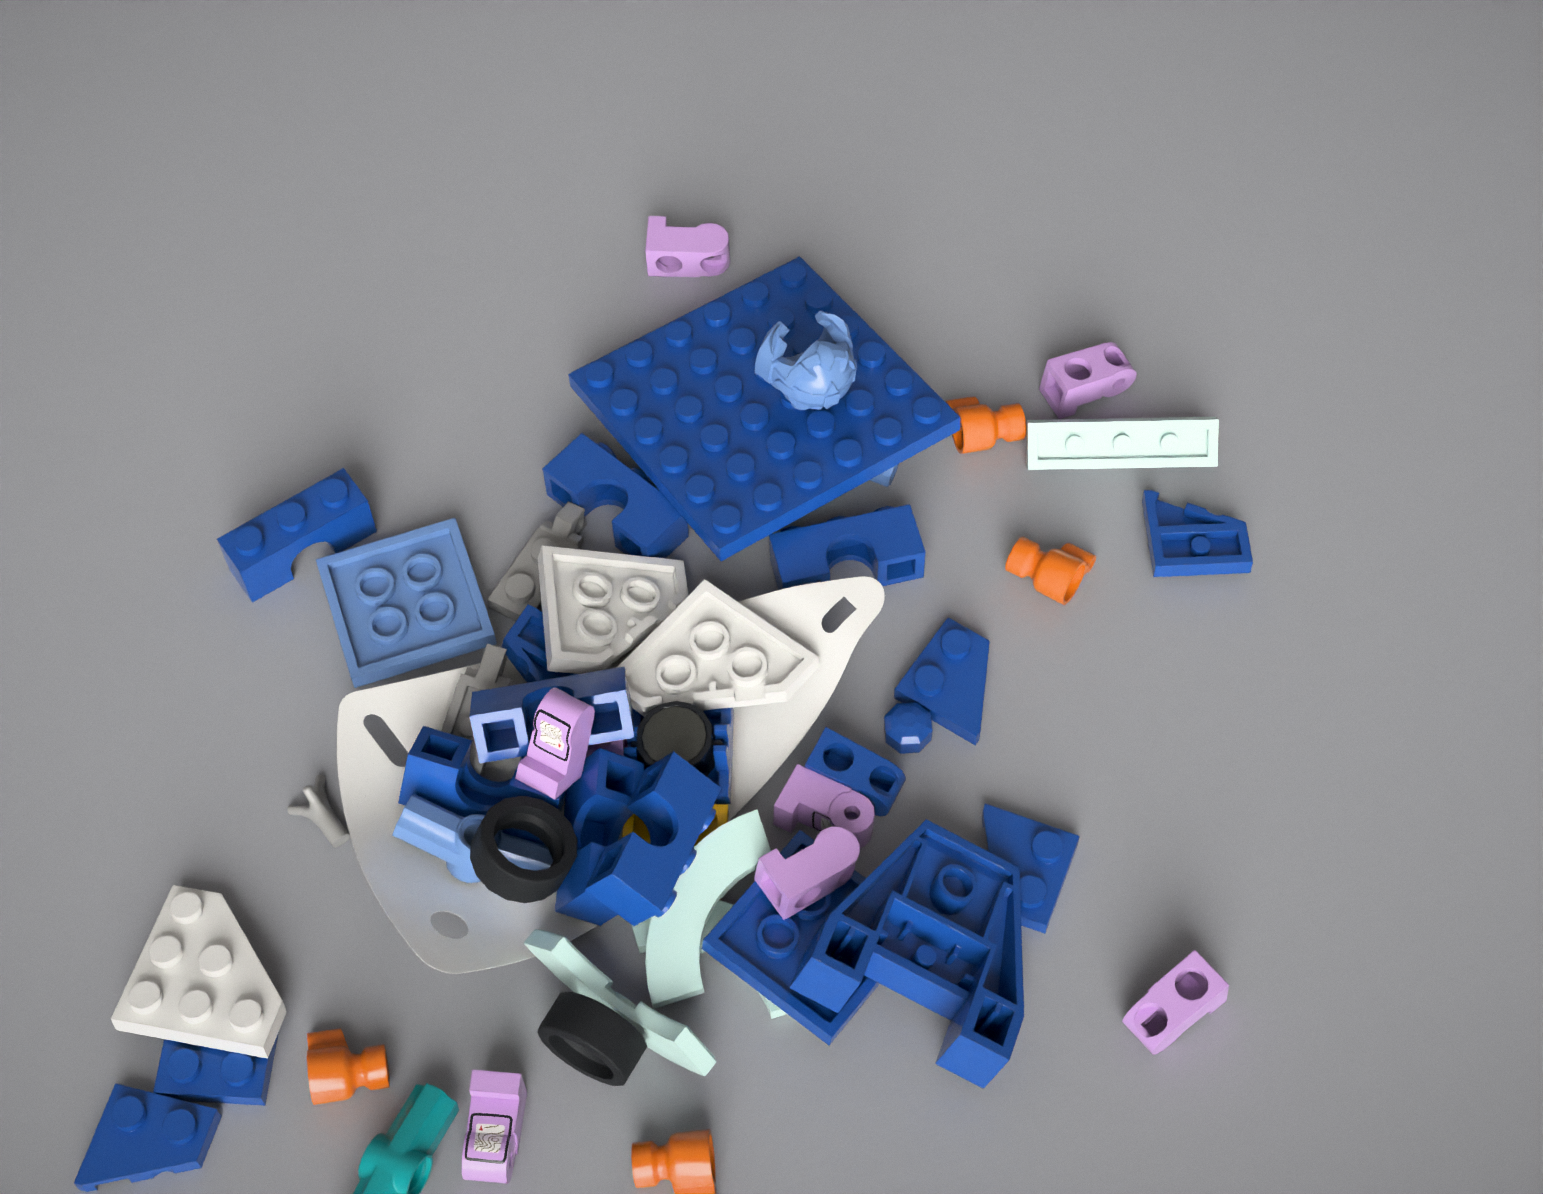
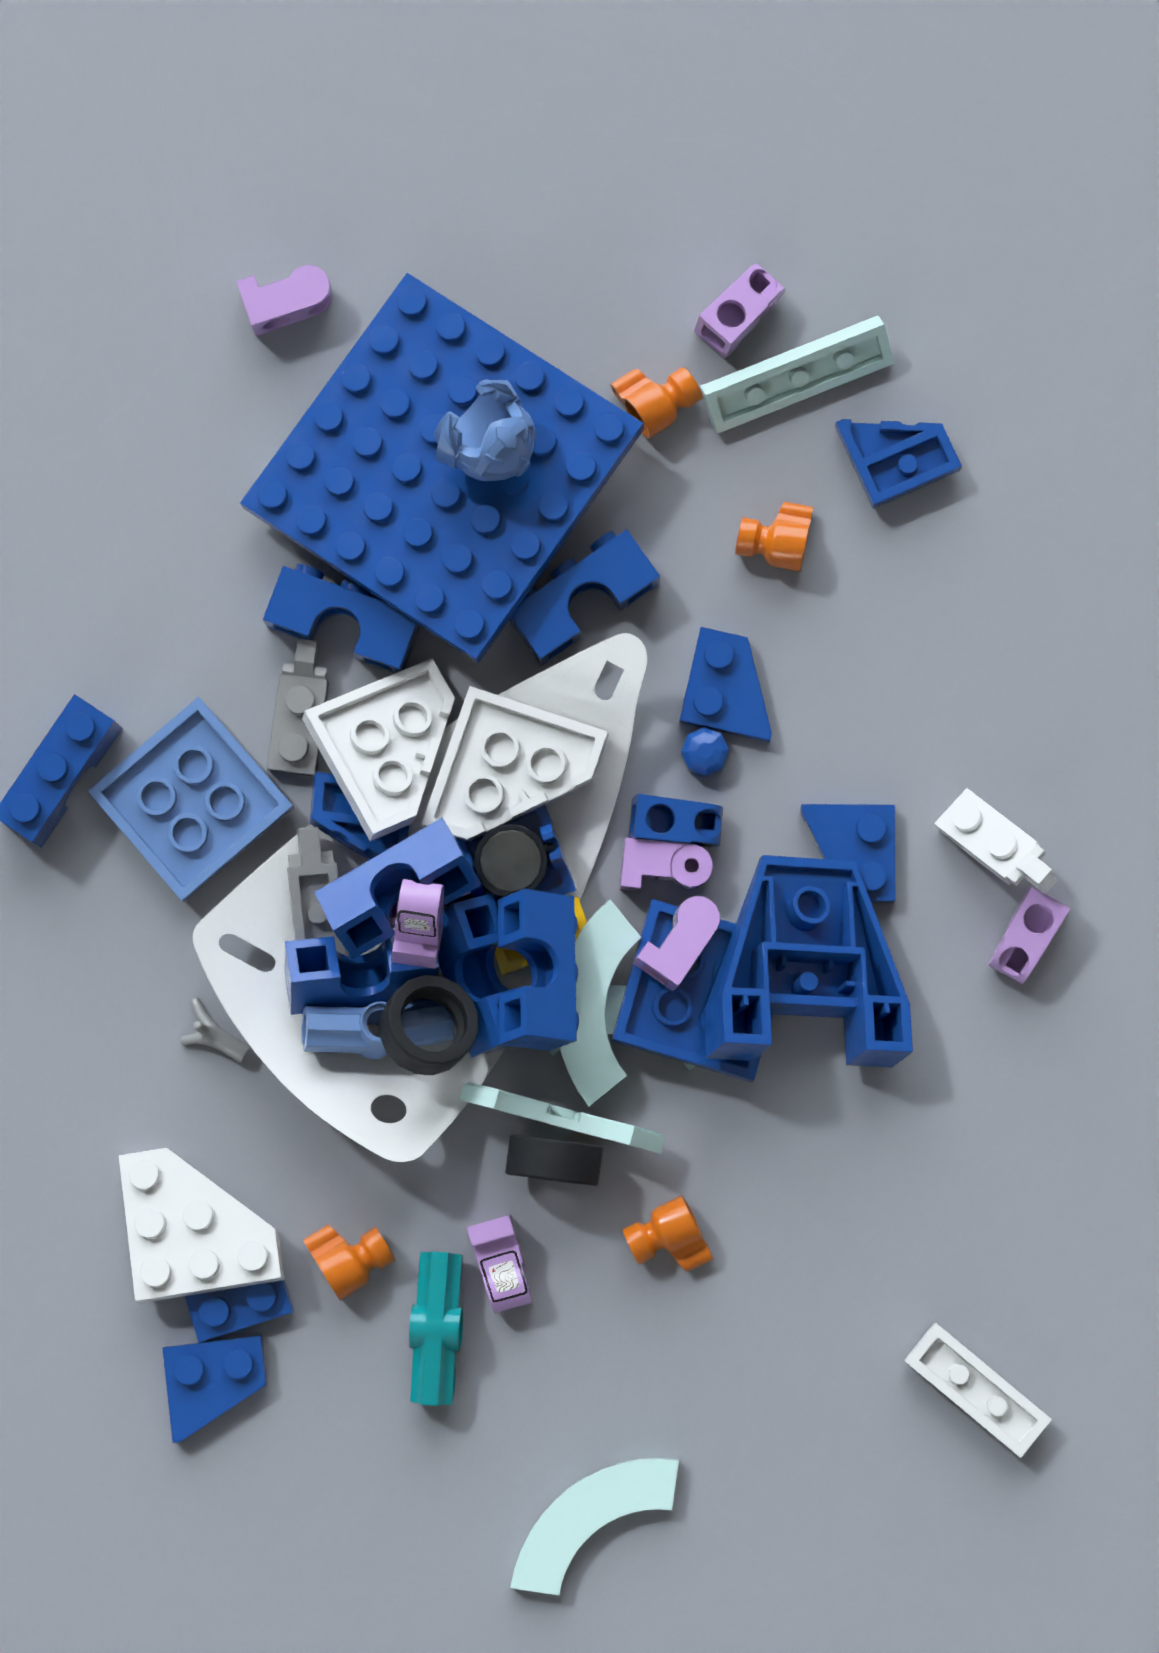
camera: 20 degrees left, 25 degrees up
(1171, 901) = (995, 842): none -> white hinge

